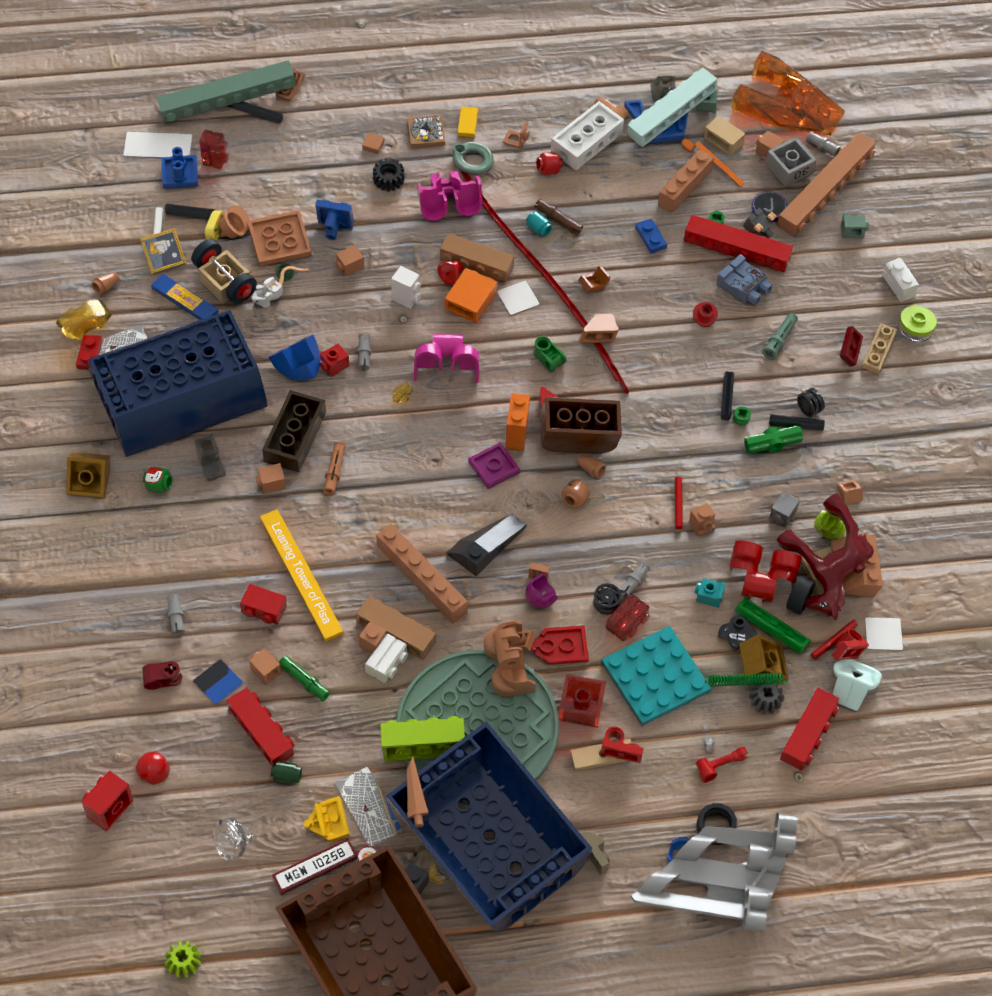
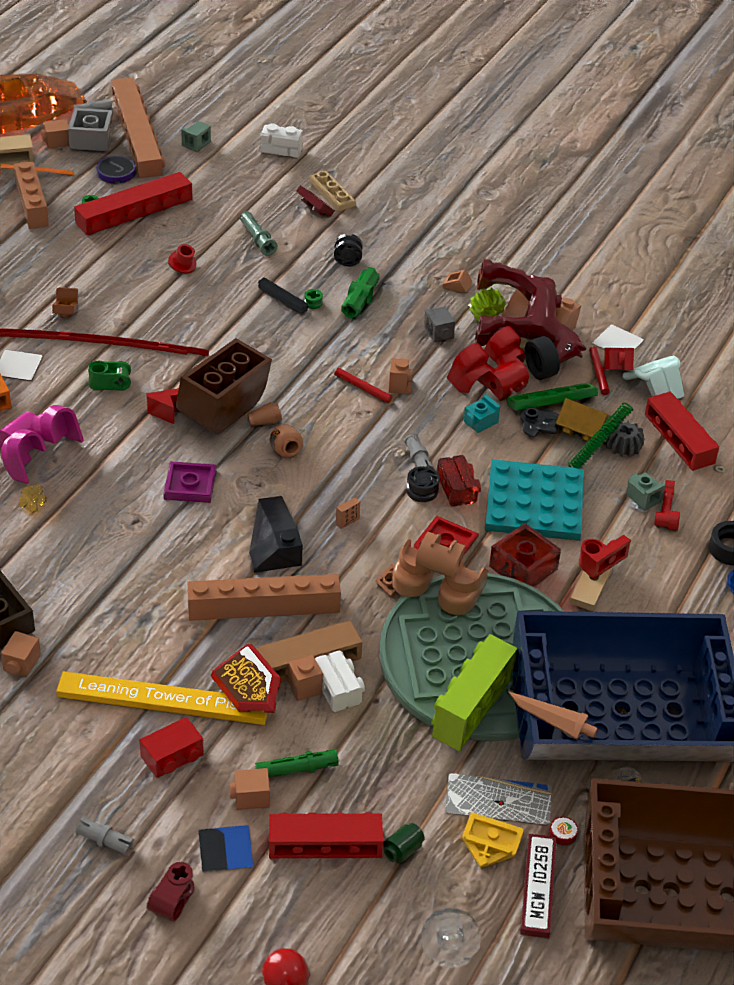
camera: 55 degrees left, 15 degrees down
(330, 485) = (70, 603): nougat pin -> none
(341, 610) = (248, 681): none -> tile
(517, 422) = (169, 428): orange brick -> none
(540, 592) = (375, 525): magenta hair -> none
(600, 329) = (125, 326): slope -> none
(651, 236) = (58, 248): blue plate -> none
(722, 738) = (645, 490): none -> sand green brick
(744, 281) = (178, 221): sand blue hips -> none
(759, 223) = (128, 179): dark grey piece -> none
(790, 421) = (354, 272): black axle -> none
(917, 323) = (334, 157): lime piece -> none

